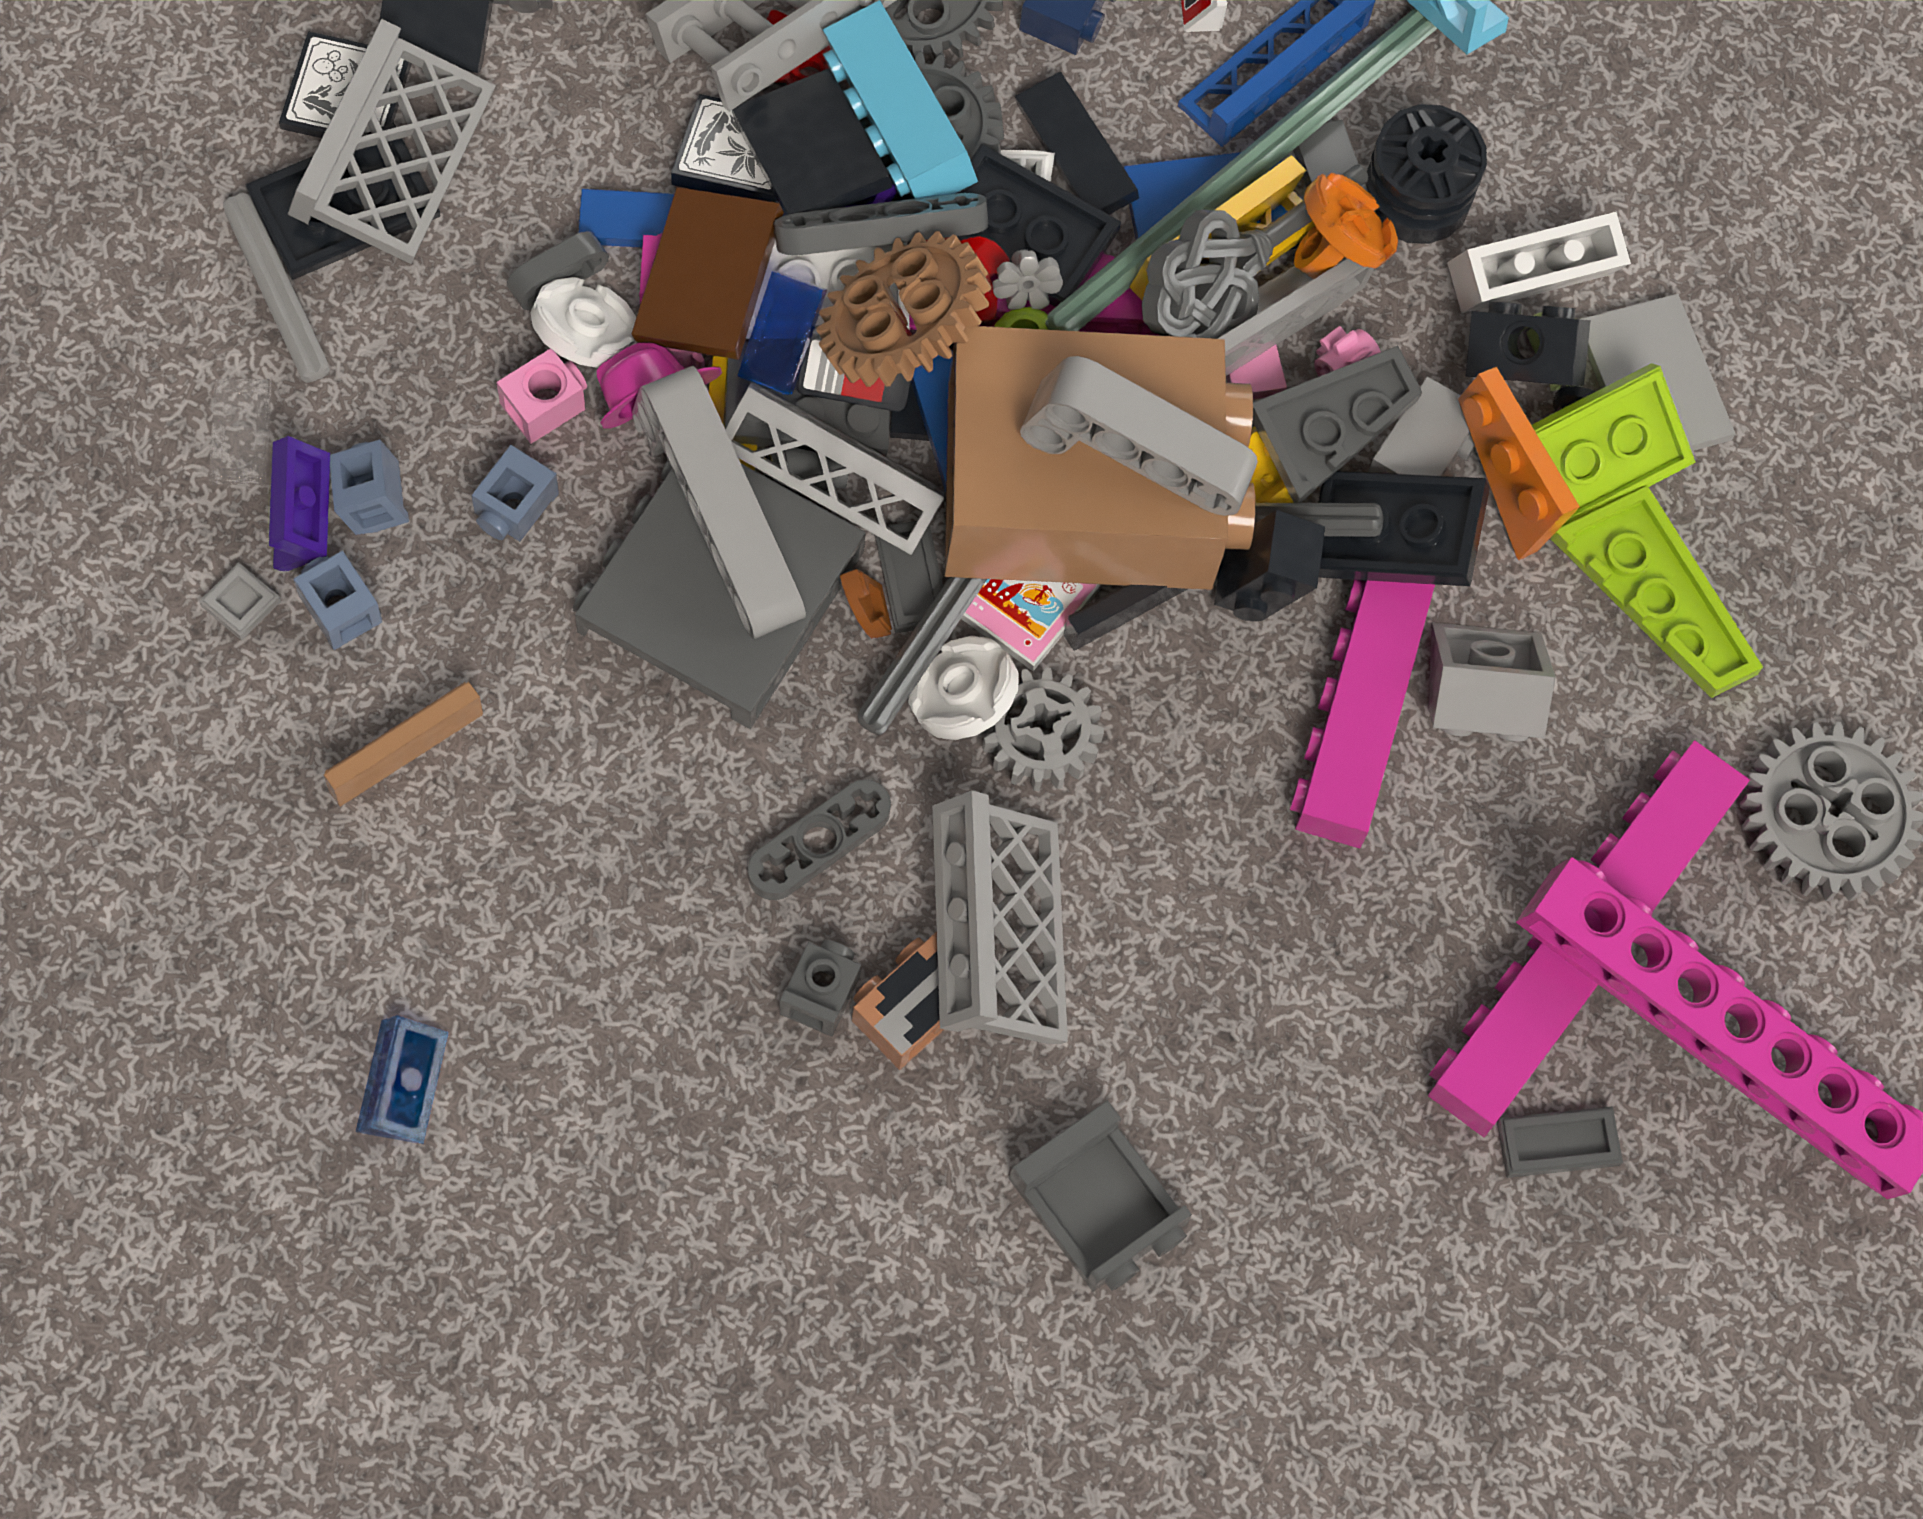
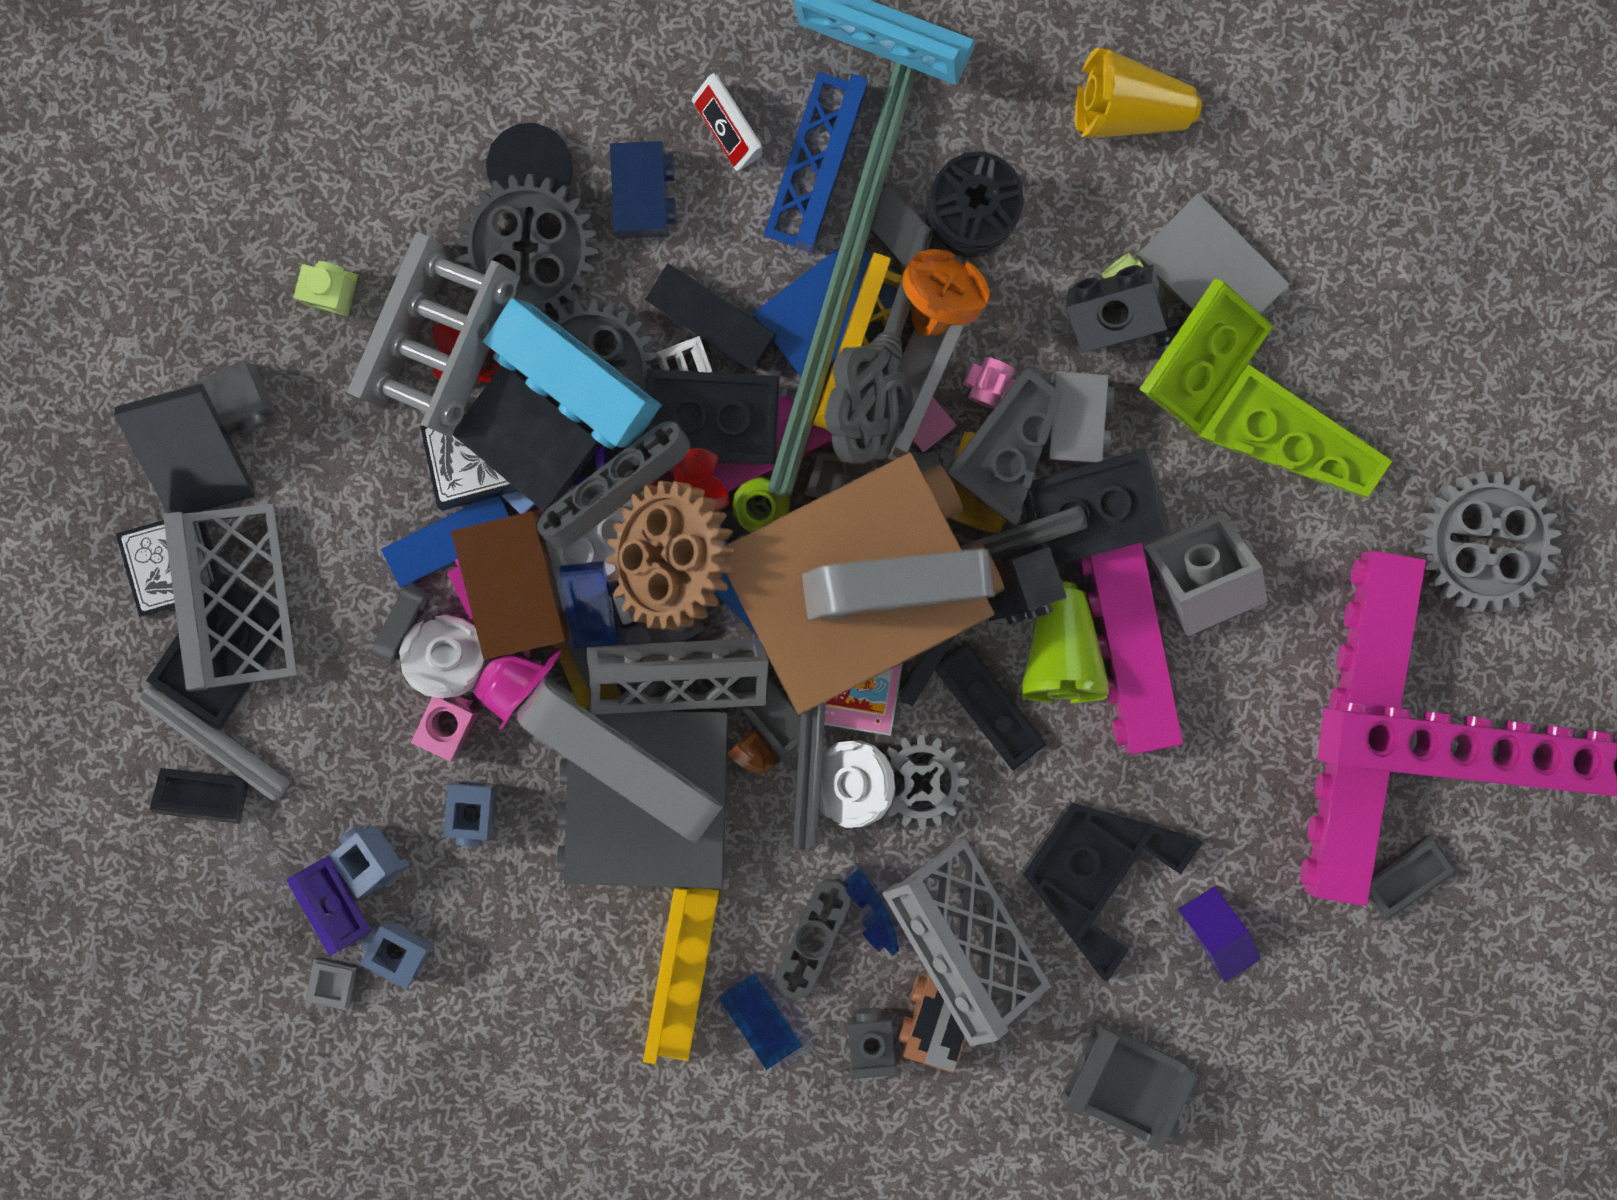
camera: 20 degrees left, 20 degrees up
(224, 329) = (199, 795): none -> black tile
(403, 743) = (501, 1030): medium nougat tile -> none
(641, 799) = (681, 973): none -> yellow fence
(705, 899) = (760, 1020): none -> clear blue tile
(906, 849) = (877, 920): none -> clear blue slope
(1027, 280) = (739, 467): light grey plant -> none
(1164, 697) = (990, 706): none -> black tile
(1183, 919) = (1086, 861): none -> black wing
(1279, 675) = (1065, 654): none -> lime cone
(1303, 1090) = (1220, 933): none -> dark purple slope
(1517, 466) = (1154, 412): orange wing -> none
(1538, 262) = (1091, 230): white brick -> none
(1653, 163) = (1131, 99): none -> yellow cone

